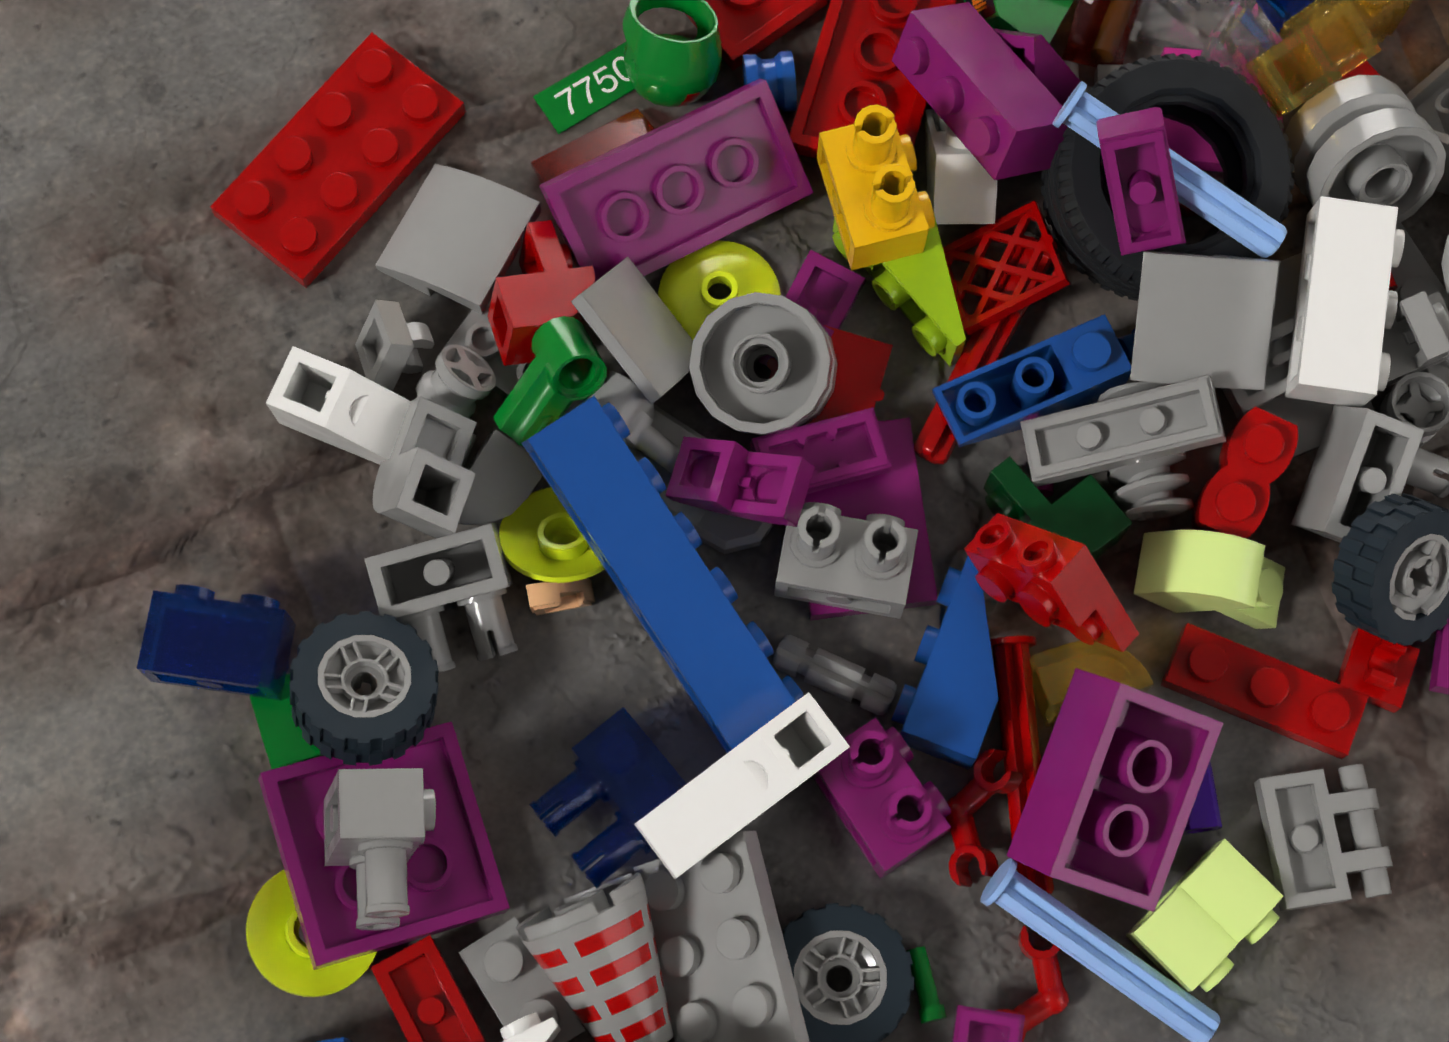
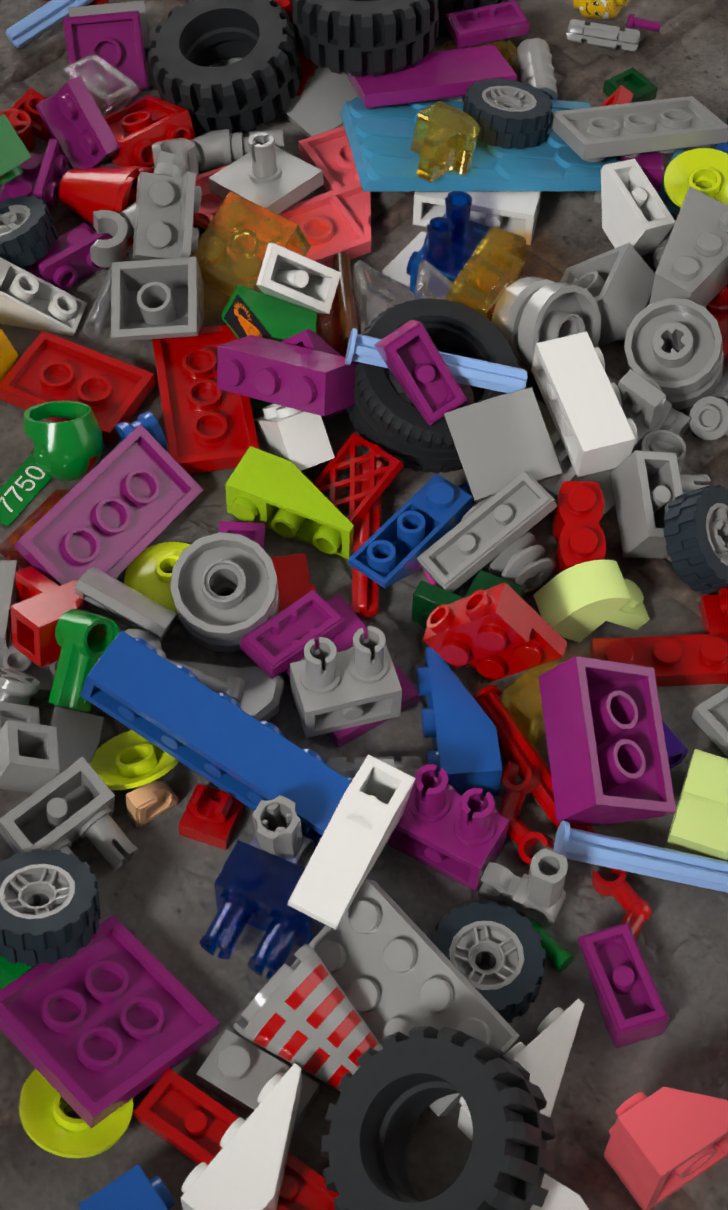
camera: 25 degrees left, 20 degrees down
(375, 827) = (95, 992): light grey brick -> none
(618, 644) = (211, 816): none -> red tile
(675, 725) = (280, 831): none -> light grey piece
(740, 482) = (248, 666): magenta slope -> none
(873, 189) = (245, 453): yellow brick -> none
(938, 925) = (534, 894): none -> light grey bar

